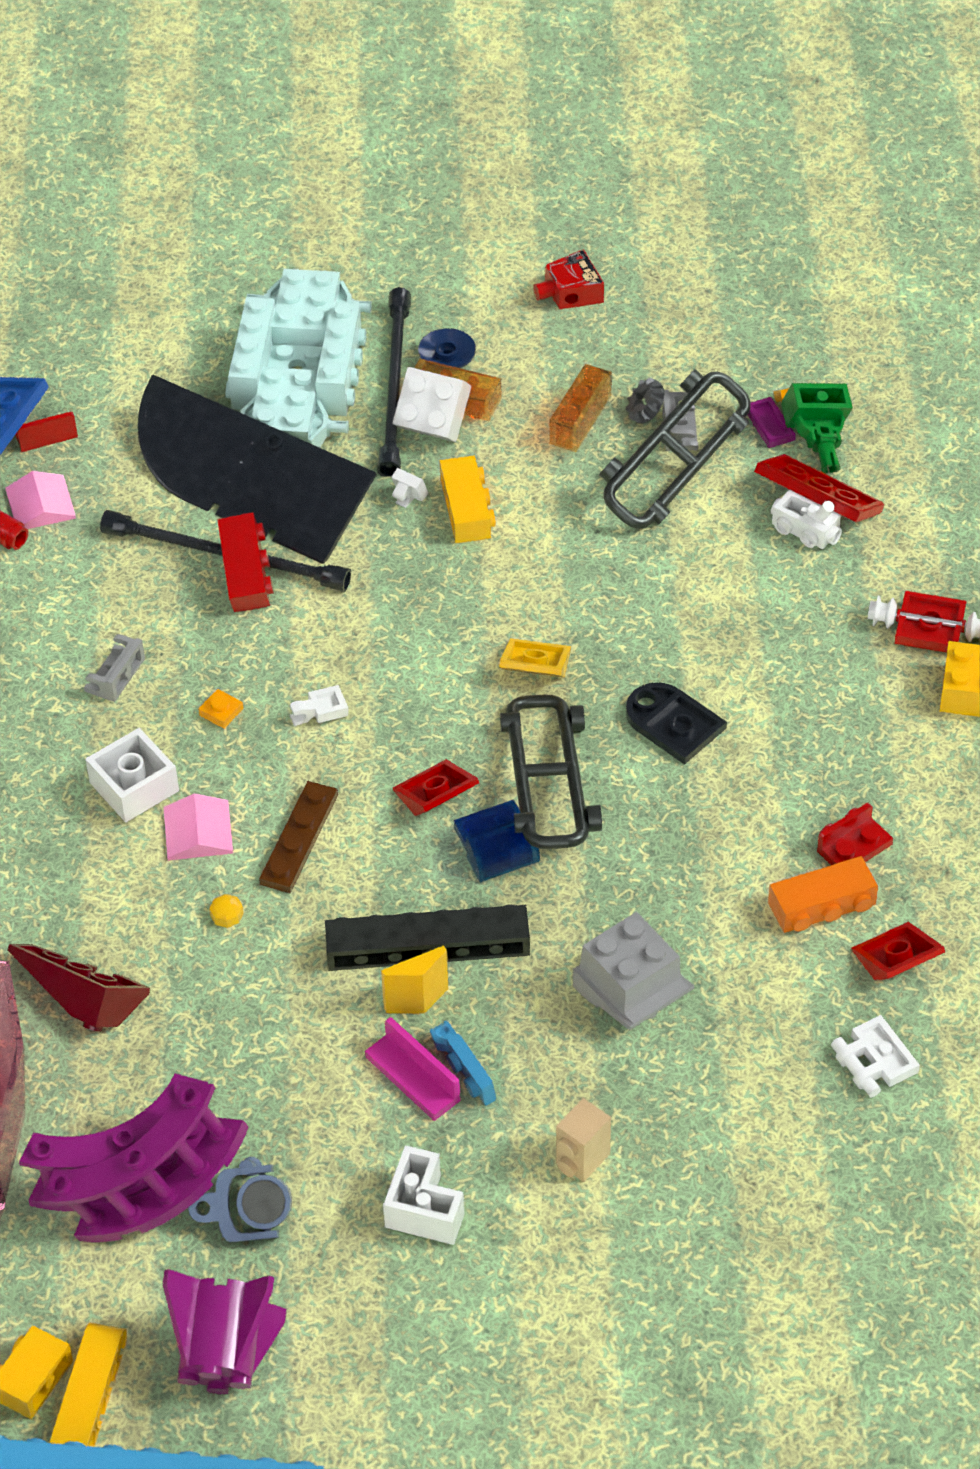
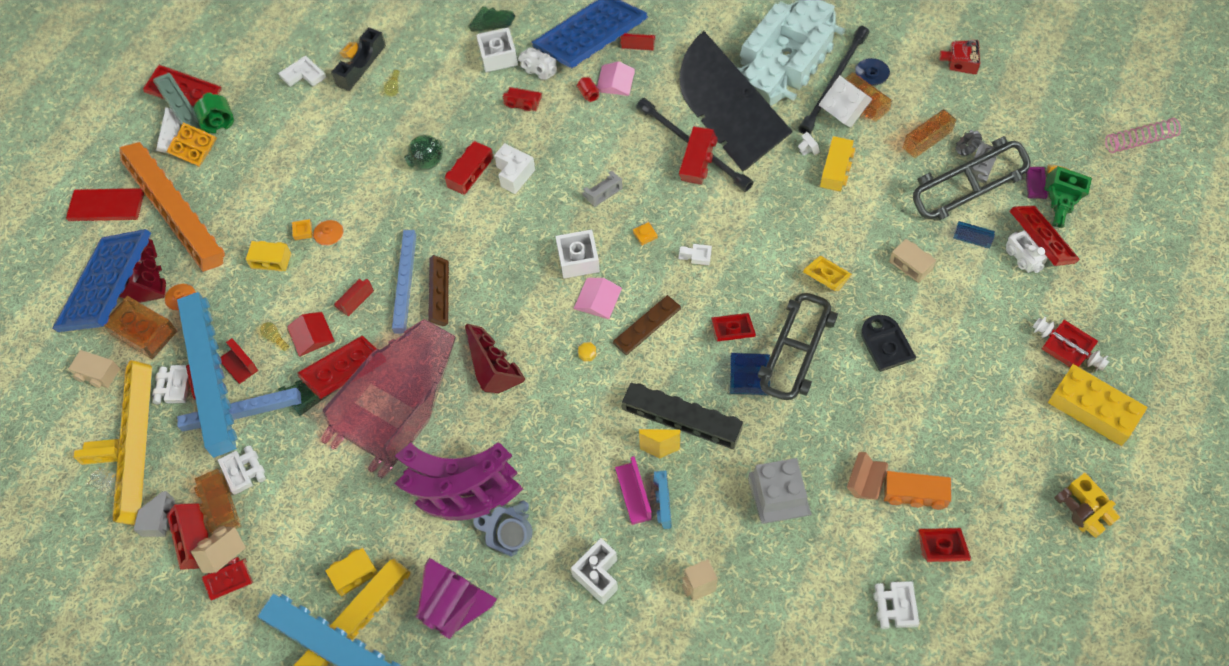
camera: 30 degrees right, 10 degrees up
(650, 592) = (912, 260): none -> tan brick
(720, 525) = (974, 234): none -> clear blue panel
(745, 908) = (867, 477): none -> nougat panel
(853, 837) = (953, 462): red bracket -> none
(914, 282) = (1148, 141): none -> bright pink piece

